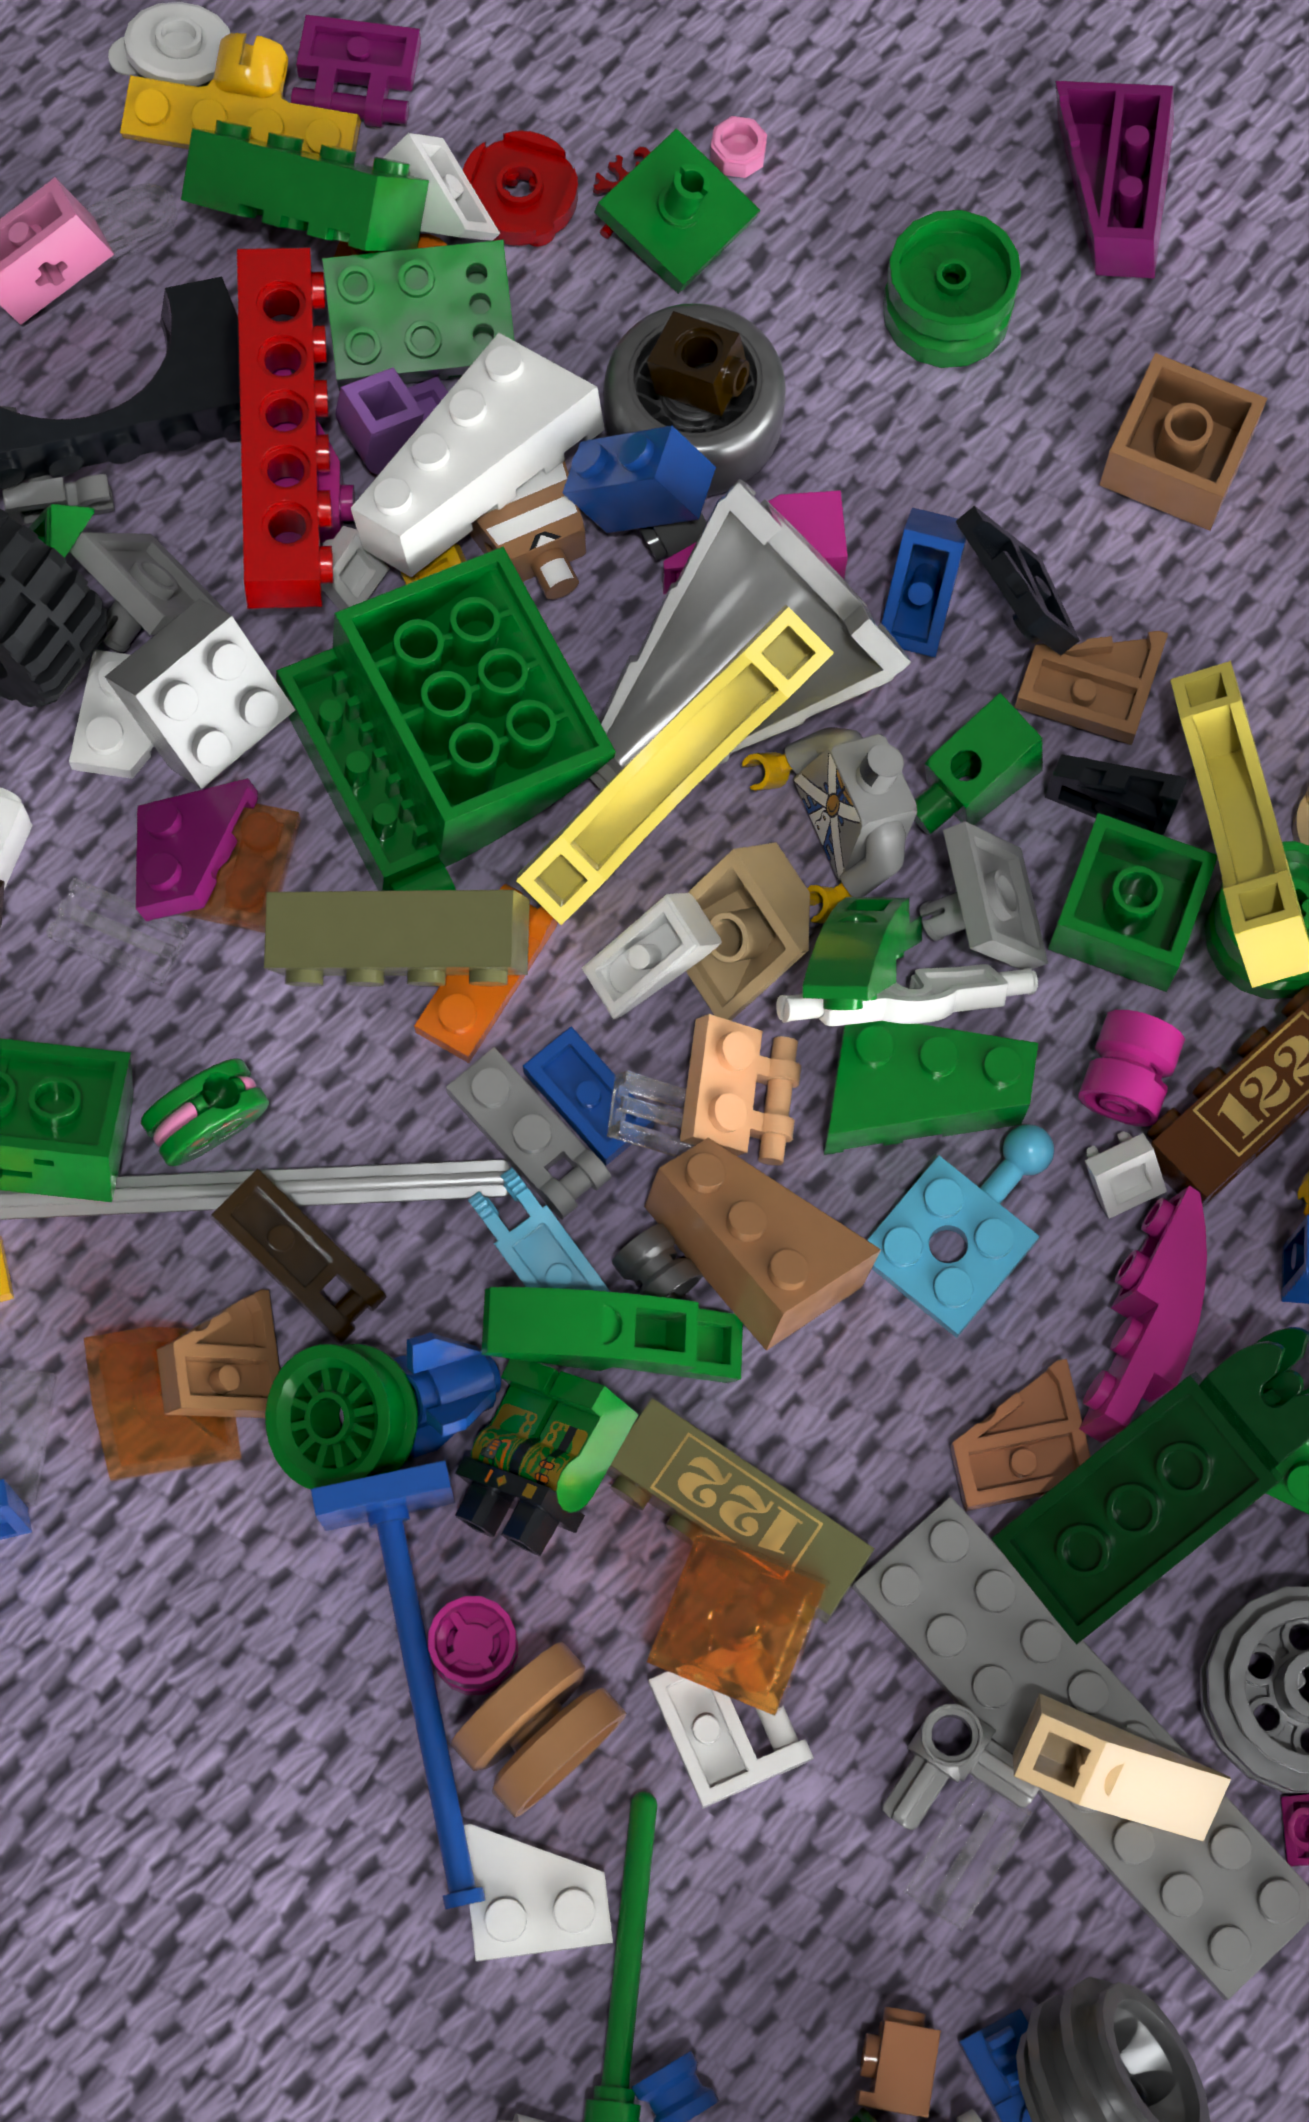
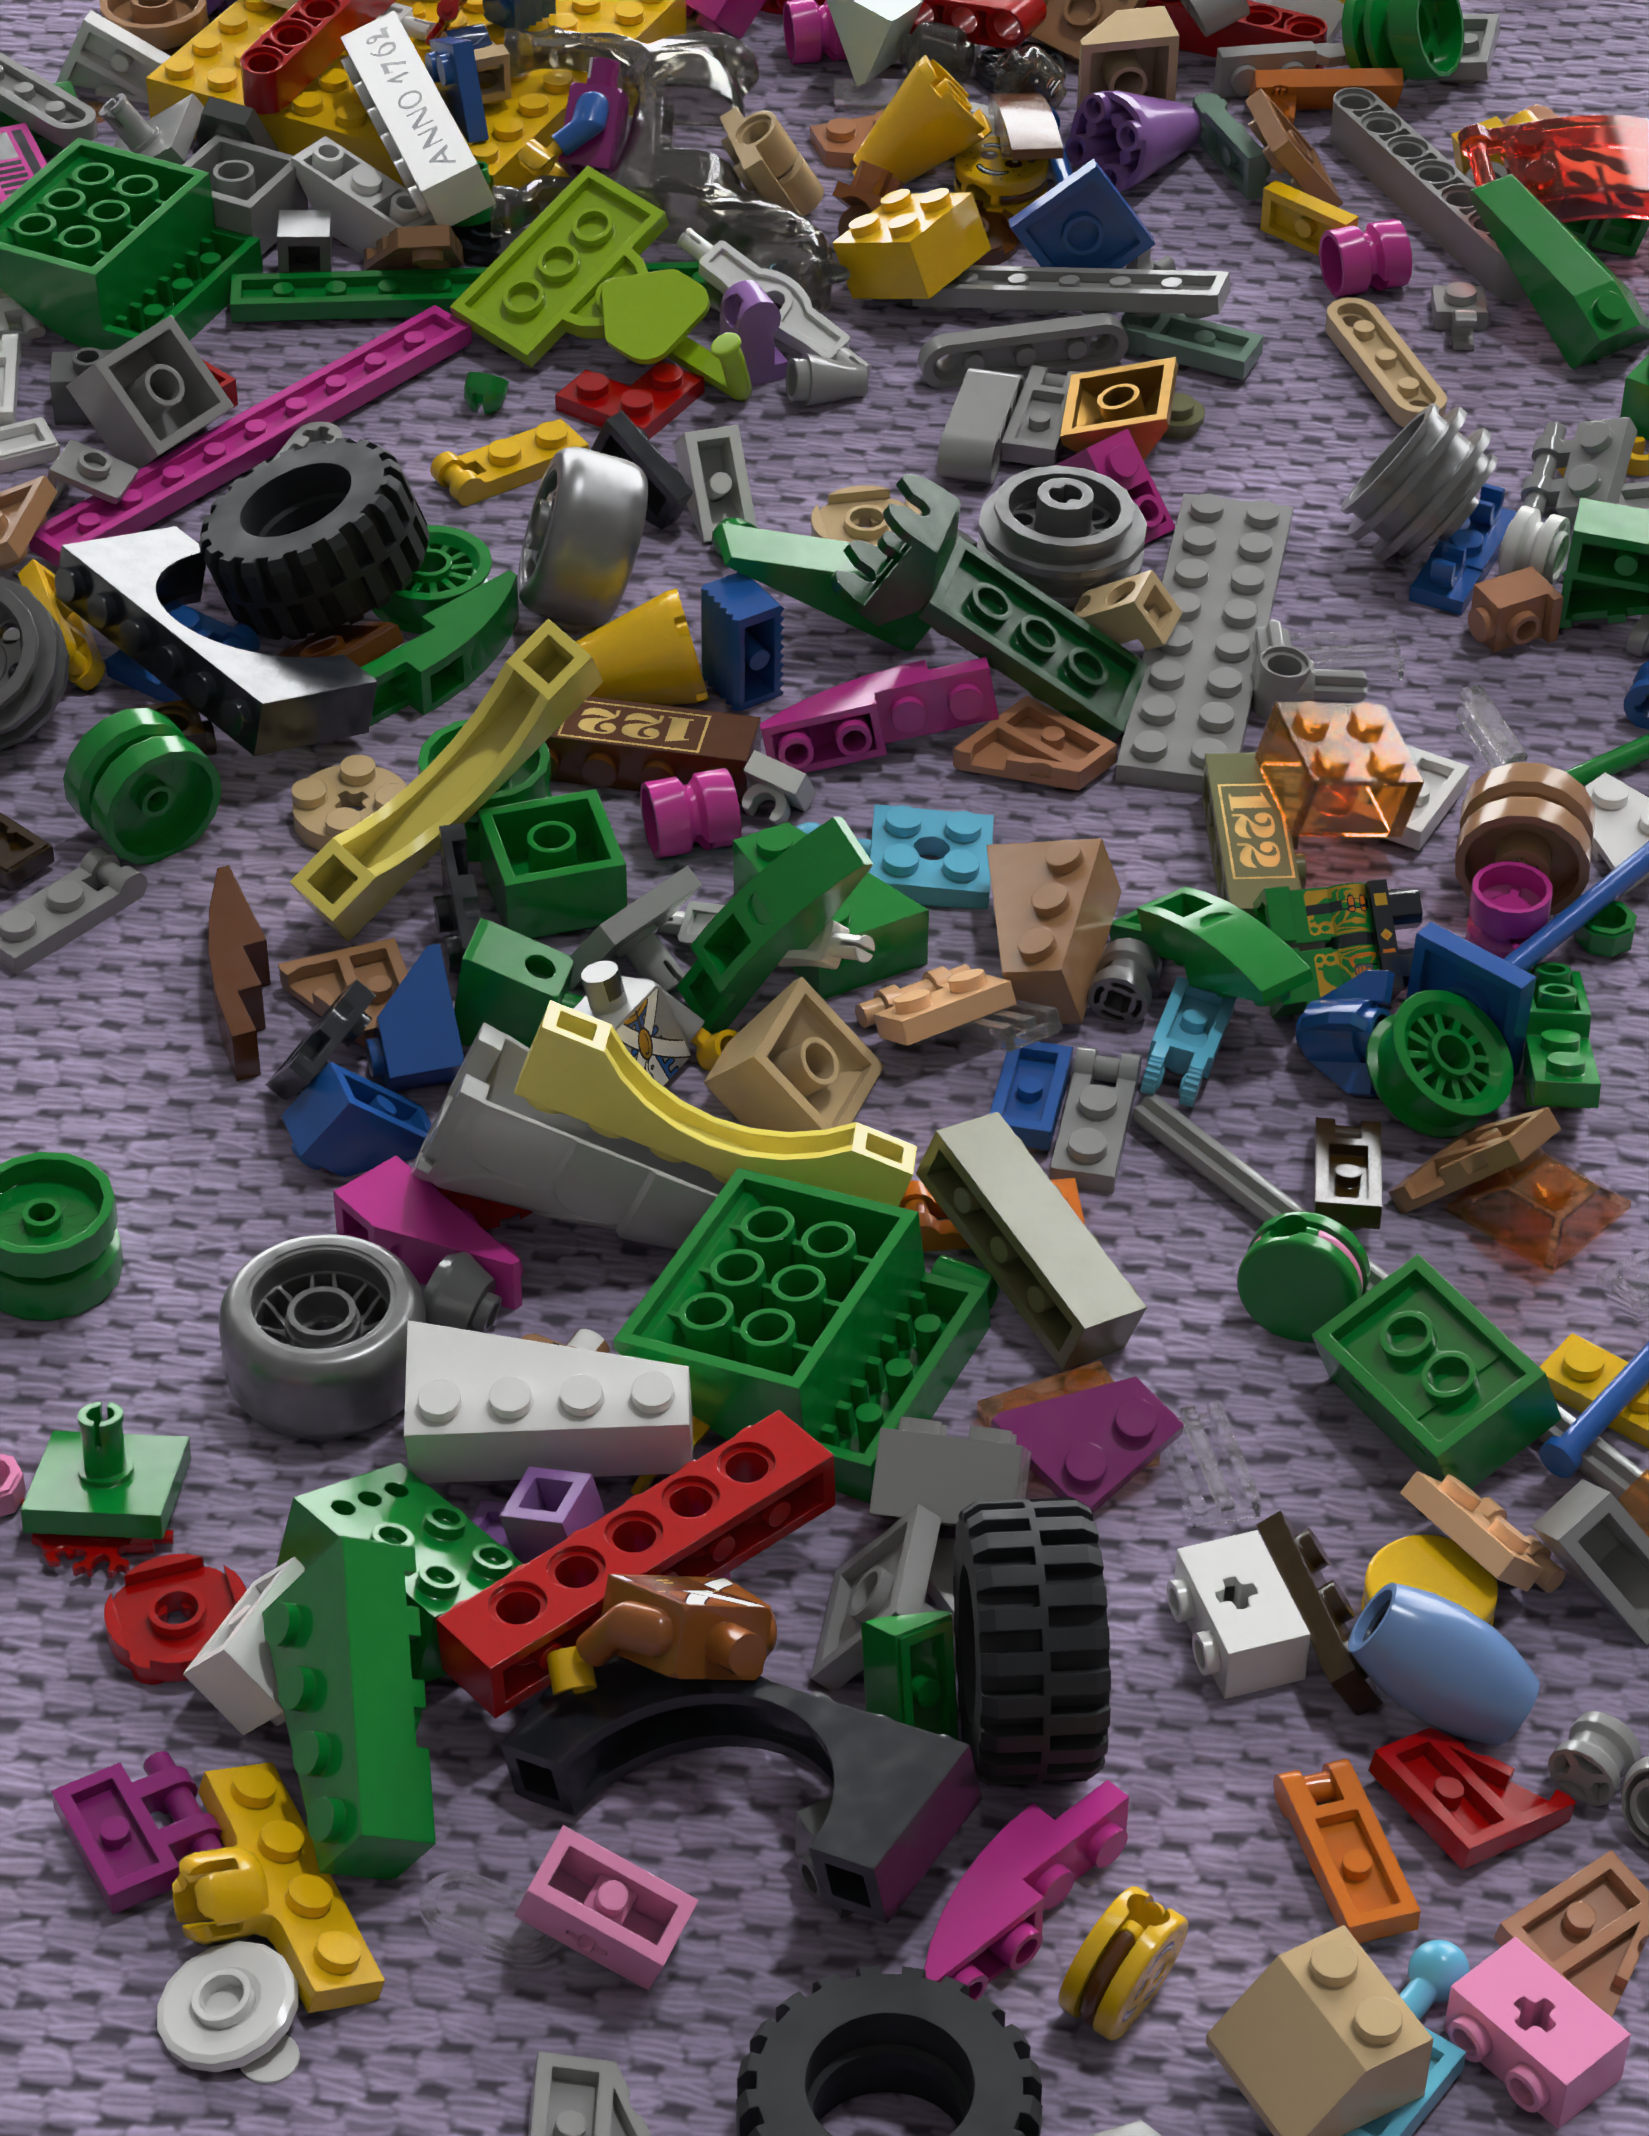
camera: 125 degrees left, 30 degrees down
(172, 394) = (673, 1627): none -> dark orange torso
(297, 1552) = (1557, 1050): none -> green slope
(404, 1750) = (1609, 931): none -> green tile
(639, 479) = (458, 1275): blue brick -> none
(651, 953) = (859, 1091): white slope -> none
(689, 343) = (315, 1303): dark brown brick -> none
(724, 1862) = (1486, 731): none -> clear tile
(985, 658) = (417, 1030): none -> blue slope
(1116, 1771) = (1229, 585): tan slope -> none
(1139, 1651) = (1131, 610): none -> tan leg
(1182, 441) = (82, 1024): medium nougat brick -> none
(1207, 609) = (237, 973): none -> reddish brown slope

